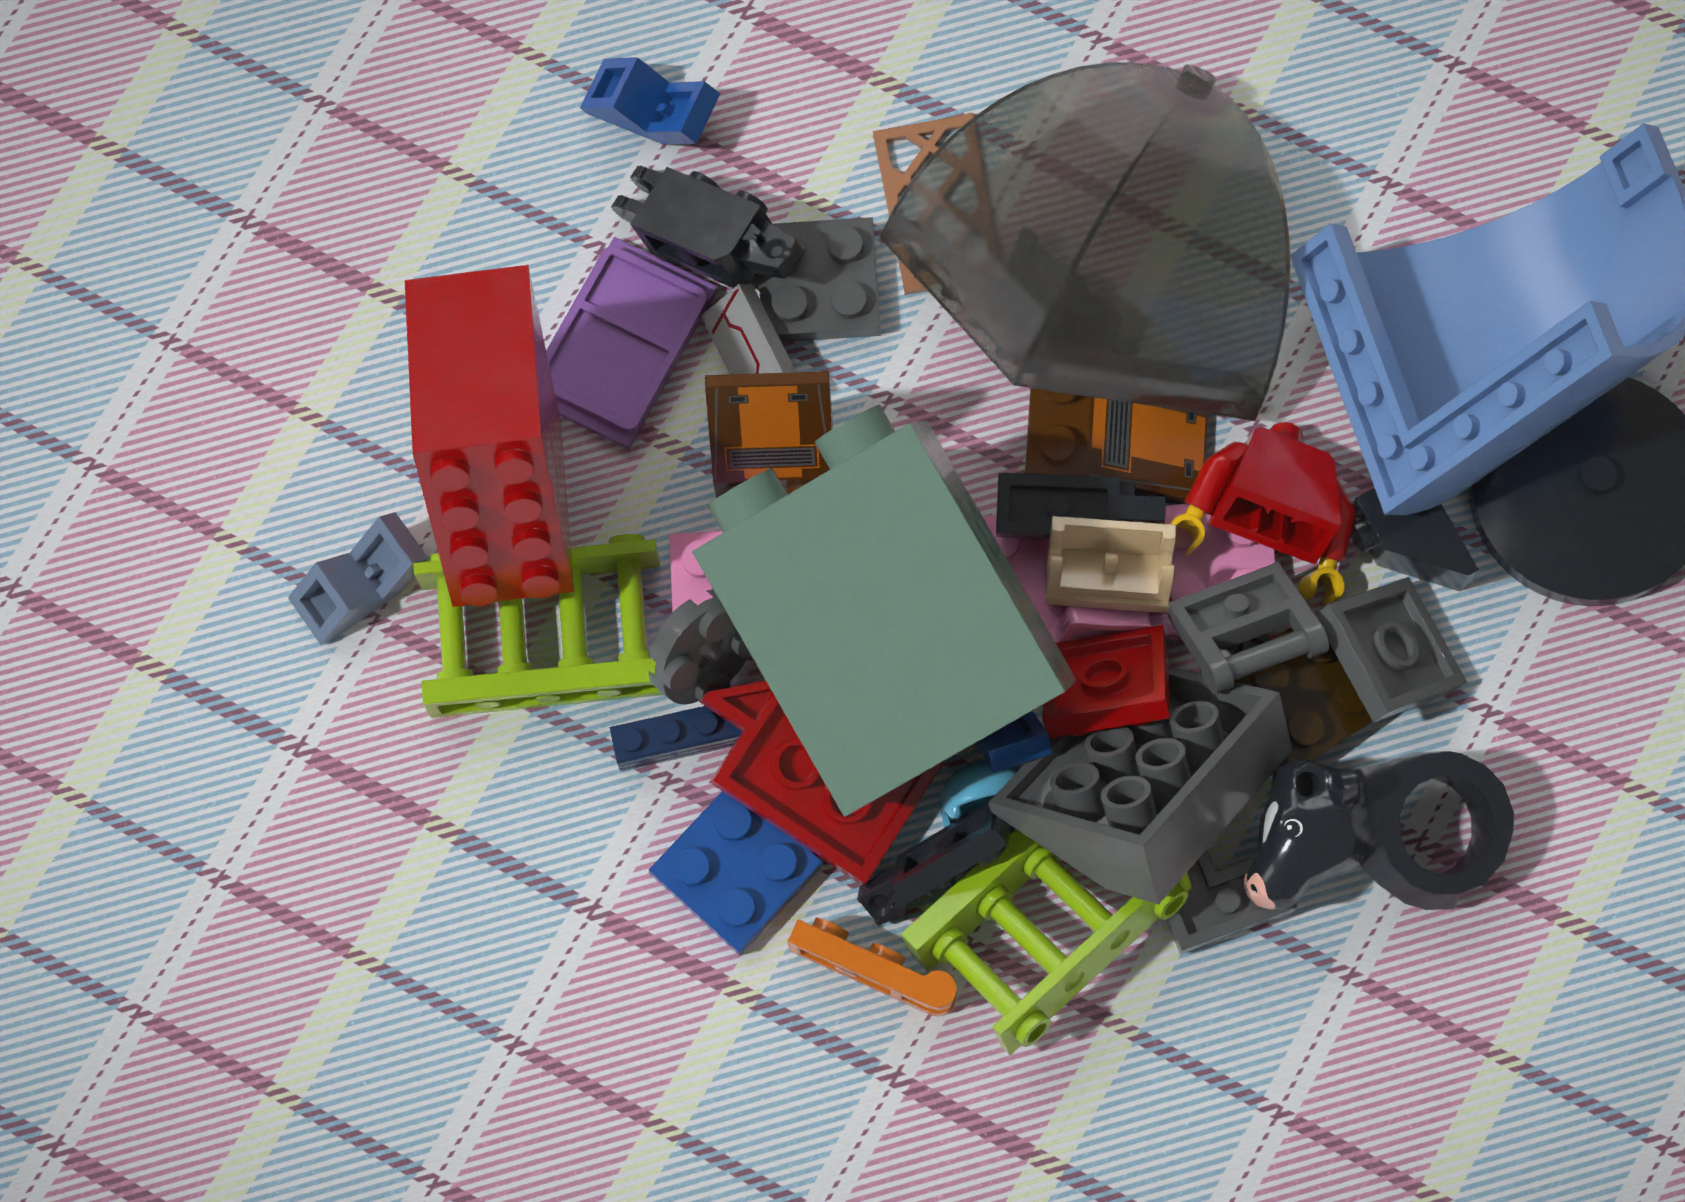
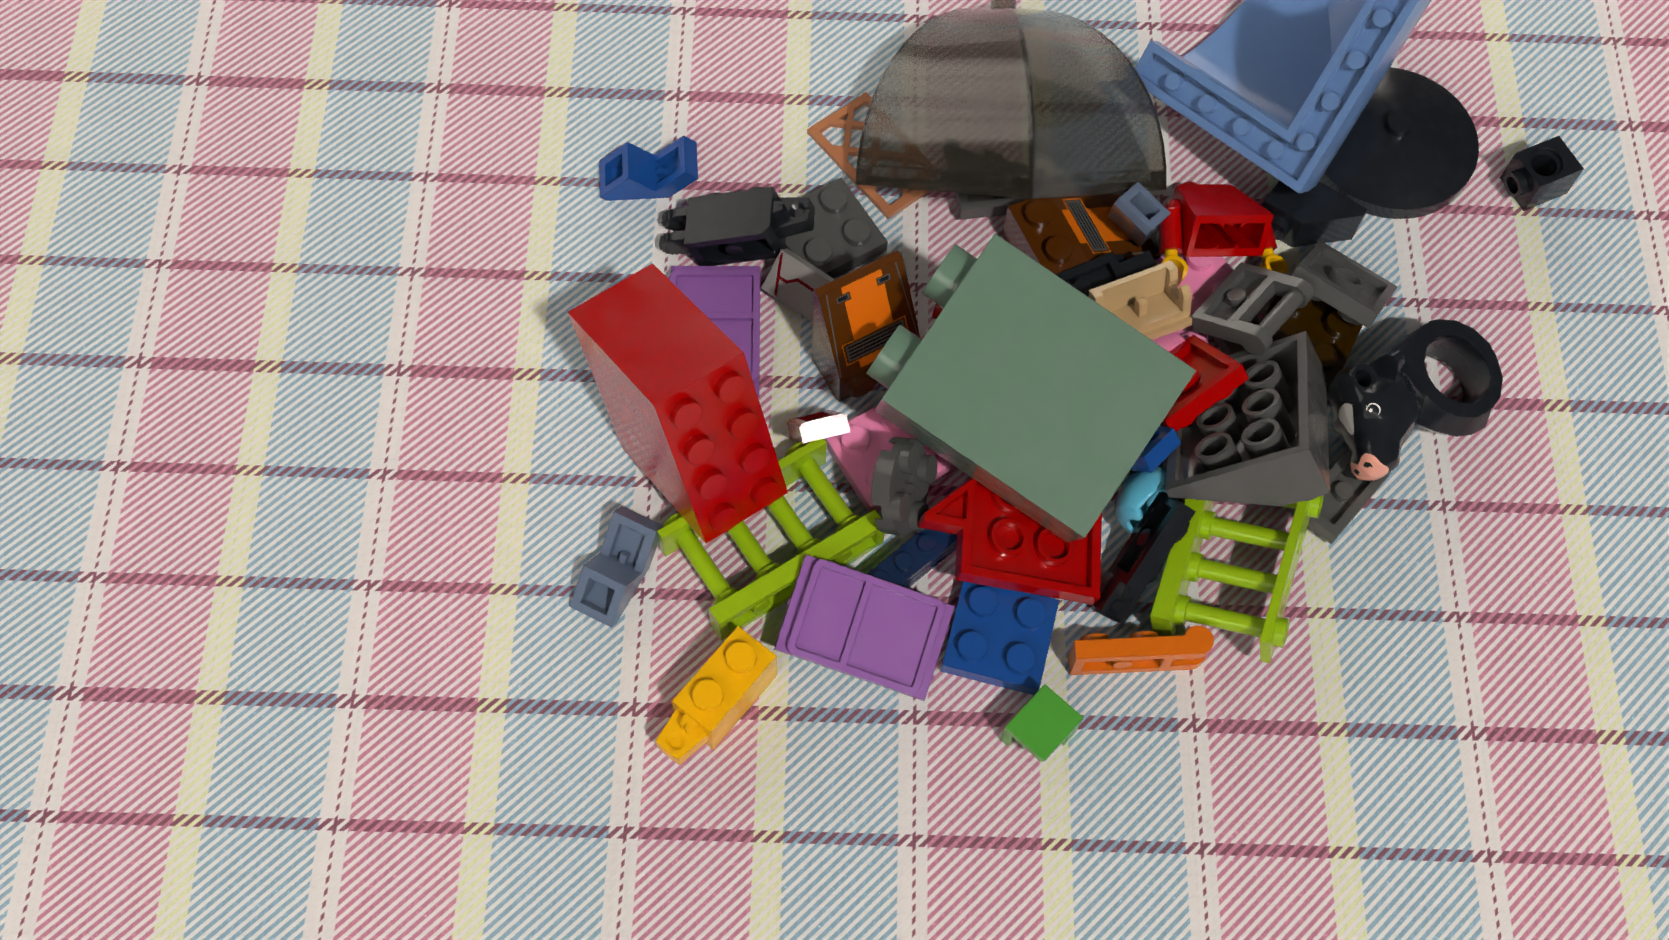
camera: 35 degrees left, 10 degrees down
(382, 783) = (717, 696): none -> yellow hinge
(582, 786) = (864, 627): none -> medium lavender piece
(657, 525) = (818, 426): none -> tile
(712, 994) = (1043, 724): none -> bright green panel
(1185, 441) = (1138, 214): none -> sand blue slope

